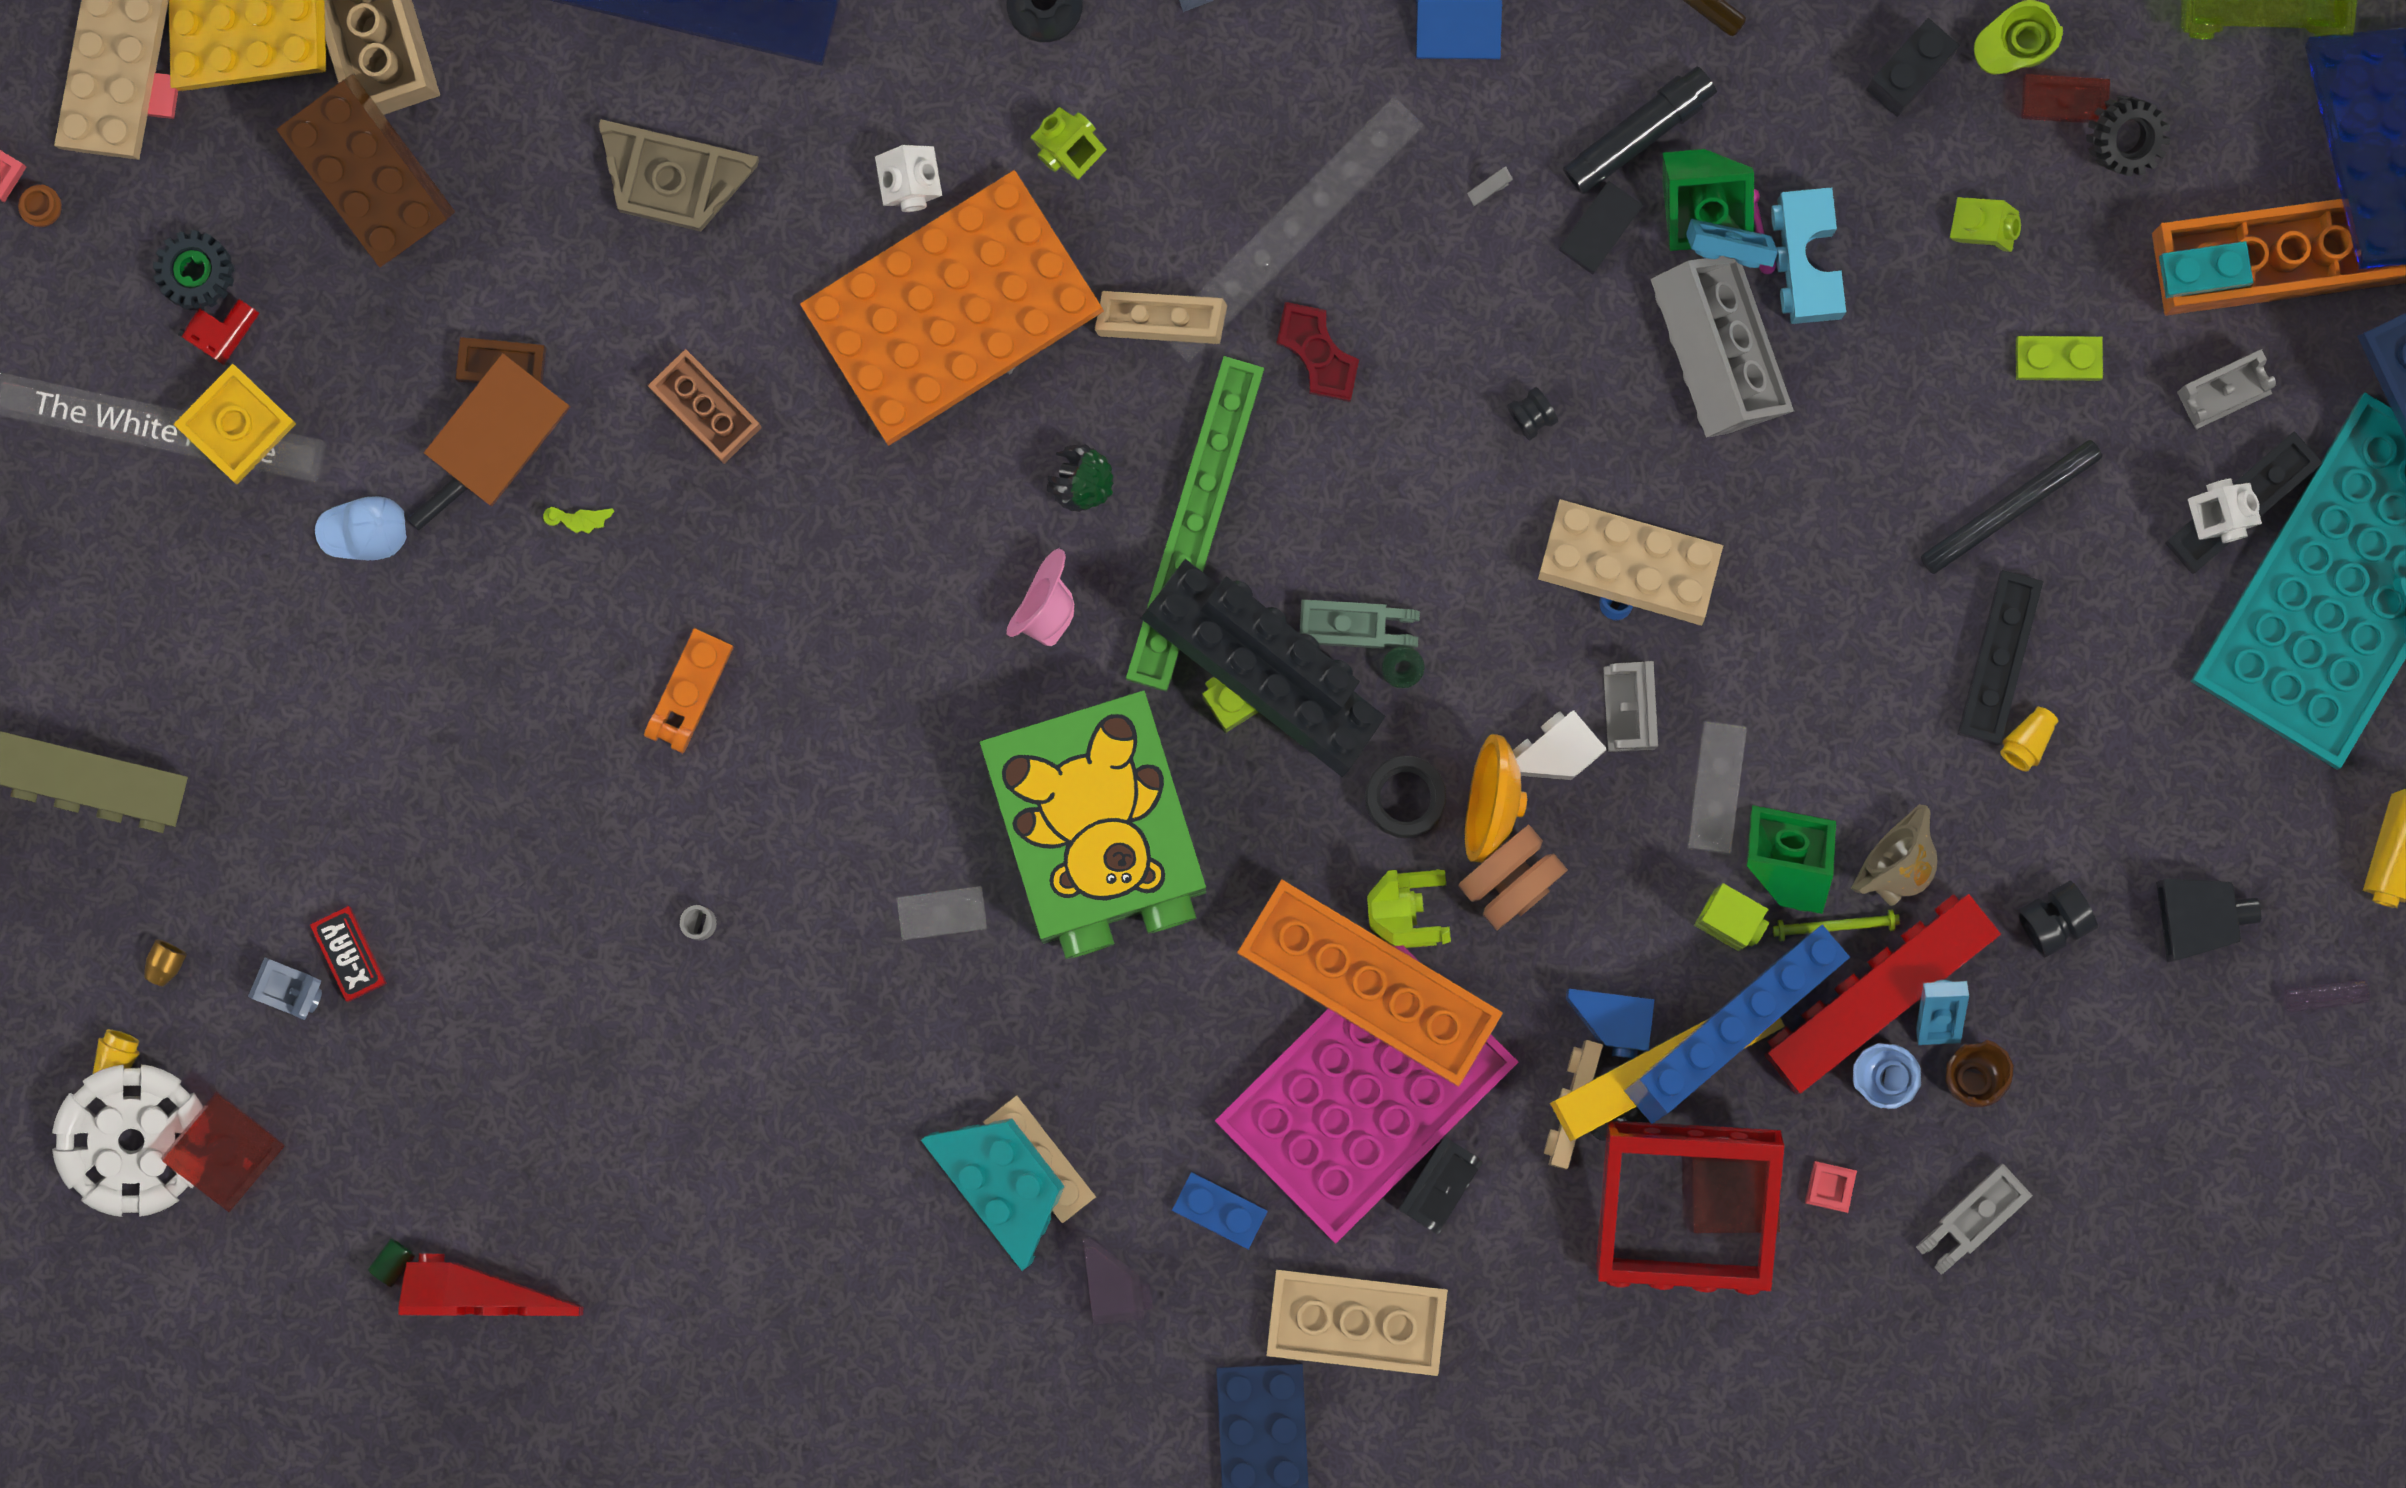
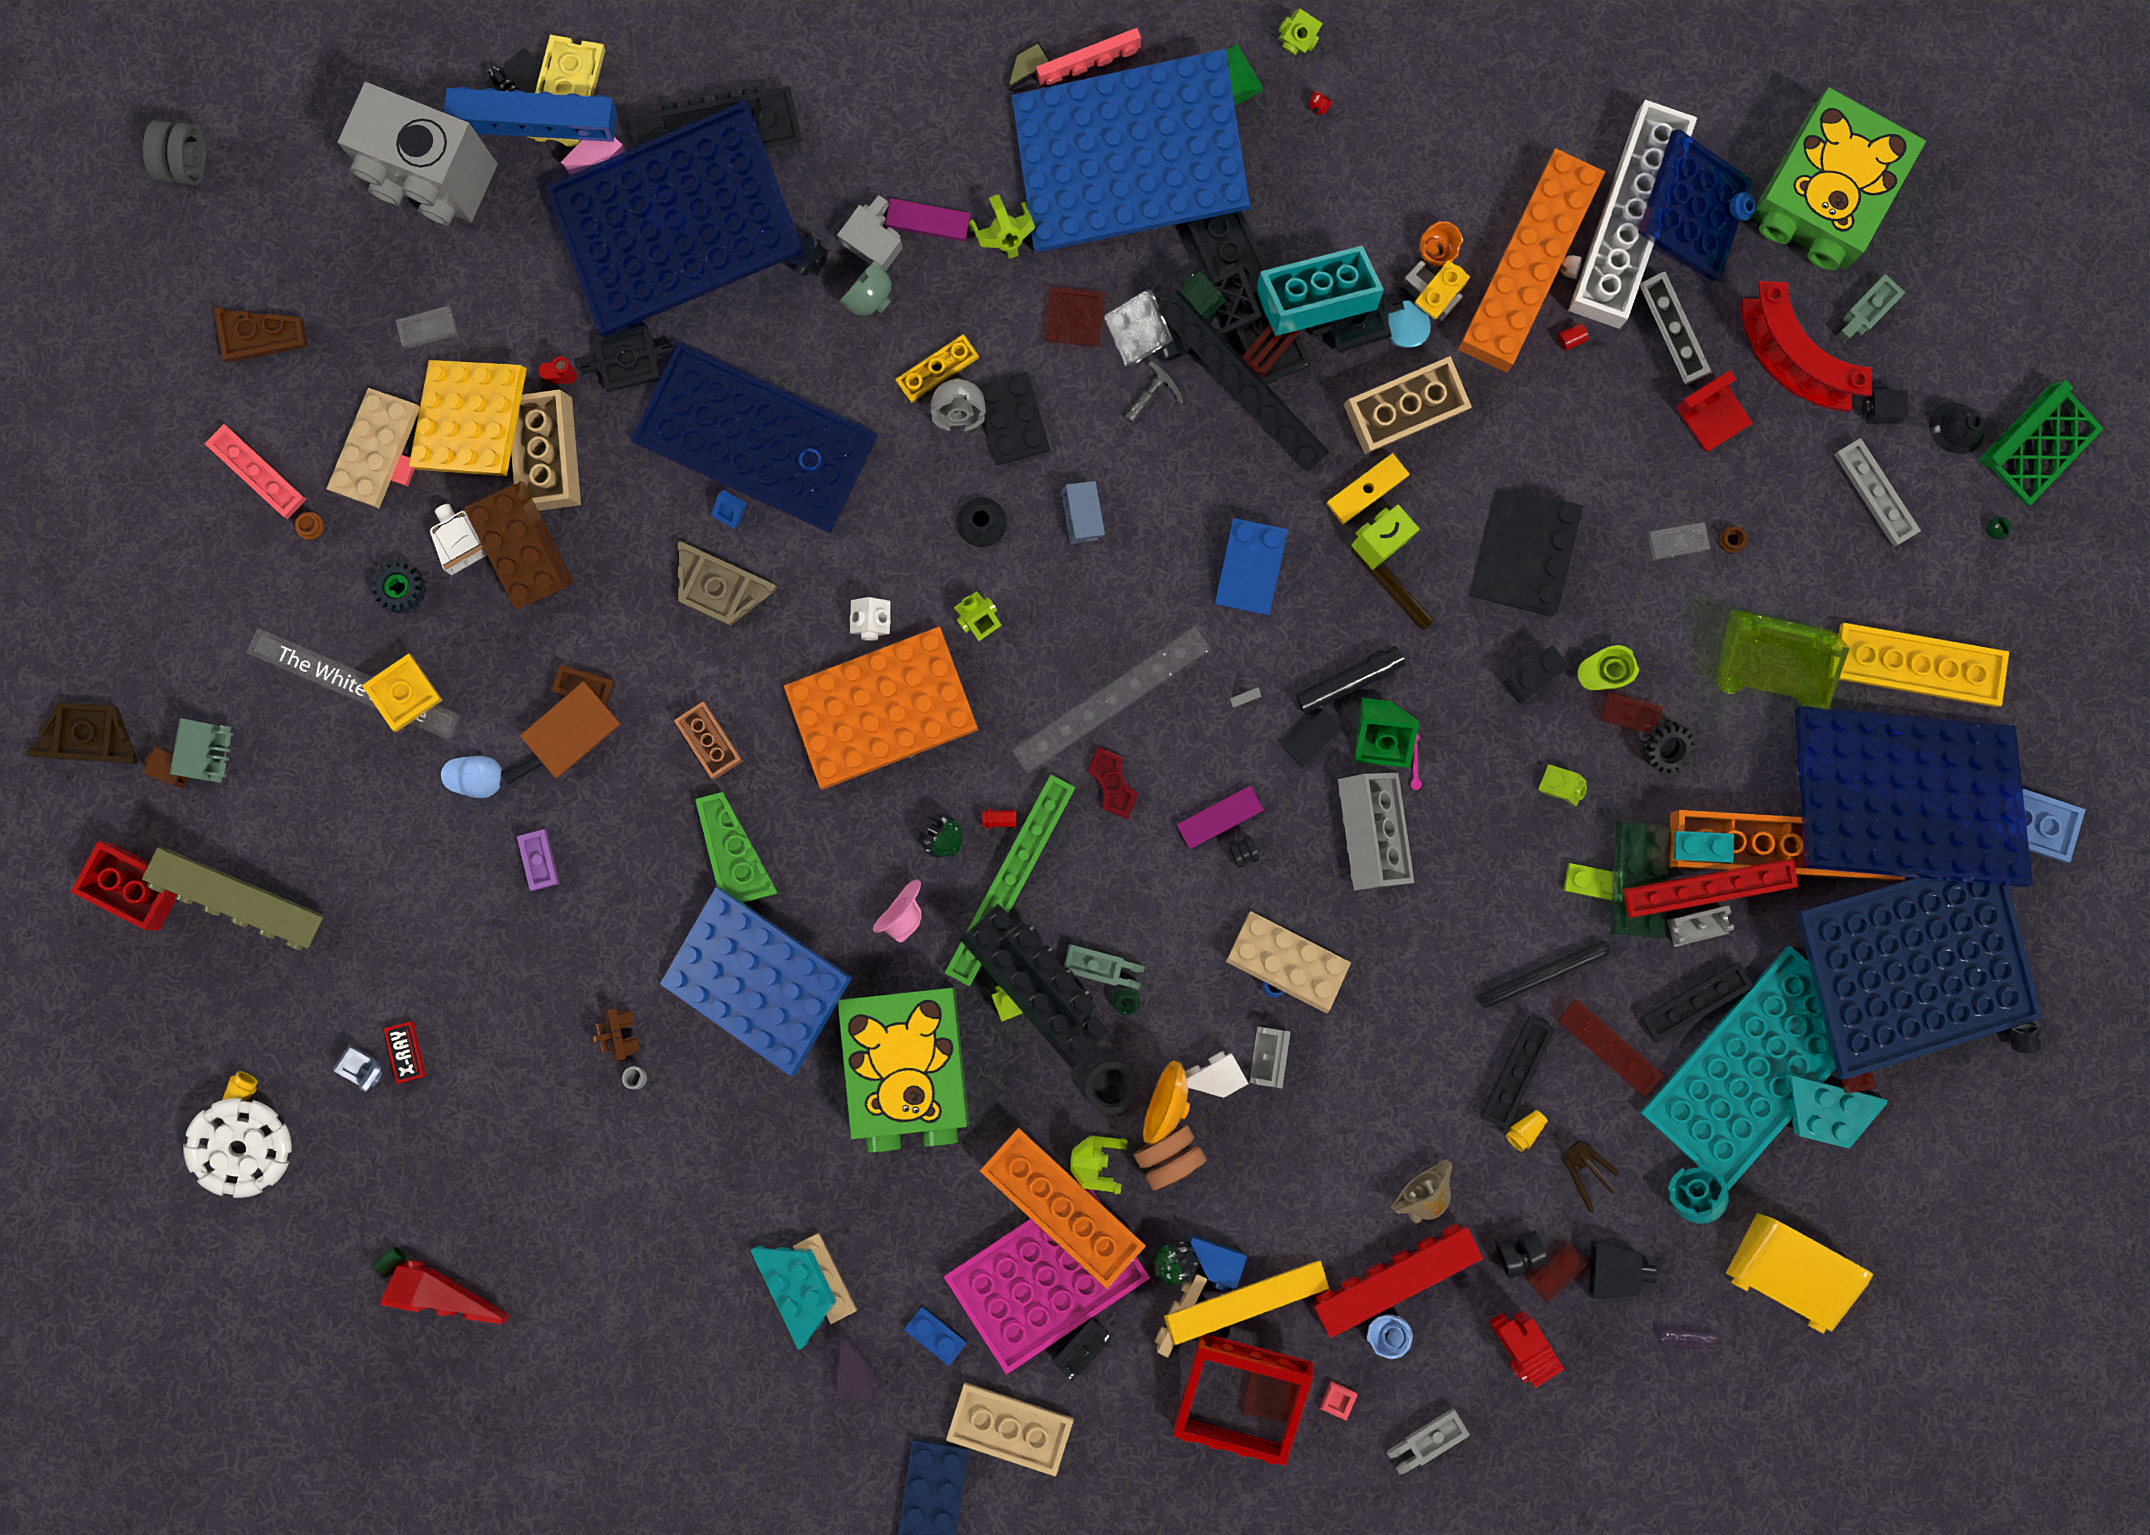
camera: 10 degrees right, 0 degrees up
(163, 963) = (282, 1035): pearl gold hose -> none
(219, 338) = (407, 634): red piece -> none
(222, 1151) = (295, 1167): clear red tile -> none
(269, 181) = (455, 540): none -> white torso
(487, 632) = (538, 860): none -> medium lavender plate
(580, 521) = (614, 799): lime piece -> none
(664, 58) = (728, 509): none -> blue plate
(665, 881) = (619, 1047): none -> reddish brown hips
(689, 689) = (661, 923): orange plate -> none
(778, 573) = (731, 852): none -> bright green wing
(850, 741) = (755, 981): none -> blue plate
(942, 913) = (794, 1103): clear plate -> none
(1159, 437) = (1001, 818): none -> red pin
(1161, 317) = (1015, 741): tan plate -> none
(1487, 371) = (1220, 817): none -> magenta tile
(1552, 1030) = (1176, 1262): none -> piece
(1716, 787) = (1315, 1121): clear plate -> none
(1733, 918) = (1309, 1213): lime brick -> none
(1736, 1024) = (1297, 1286): blue brick -> none
(1744, 246) = (1395, 766): dark azure plate -> none
(1792, 857) = (1356, 1177): green slope -> none
(1809, 292) = (1440, 808): medium azure arch -> none
(1836, 925) = (1376, 1227): lime axle -> none
(1942, 1012) = (1434, 1302): dark azure plate -> none
(1974, 1088) = (1450, 1356): reddish brown hair -> none
(2089, 1050) = (1527, 1347): none -> red piece
(2115, 937) = (1561, 1269): none -> clear red plate
(2116, 760) = (1580, 1155): none -> dark brown plant
(2125, 340) = (1639, 860): none -> clear green plate
(2129, 595) = (1610, 1048): none -> clear red plate
(2225, 511) = (1685, 1008): white brick -> none
(2228, 328) = (1710, 887): none -> red tile
(2299, 779) = (1699, 1194): none -> teal cylinder

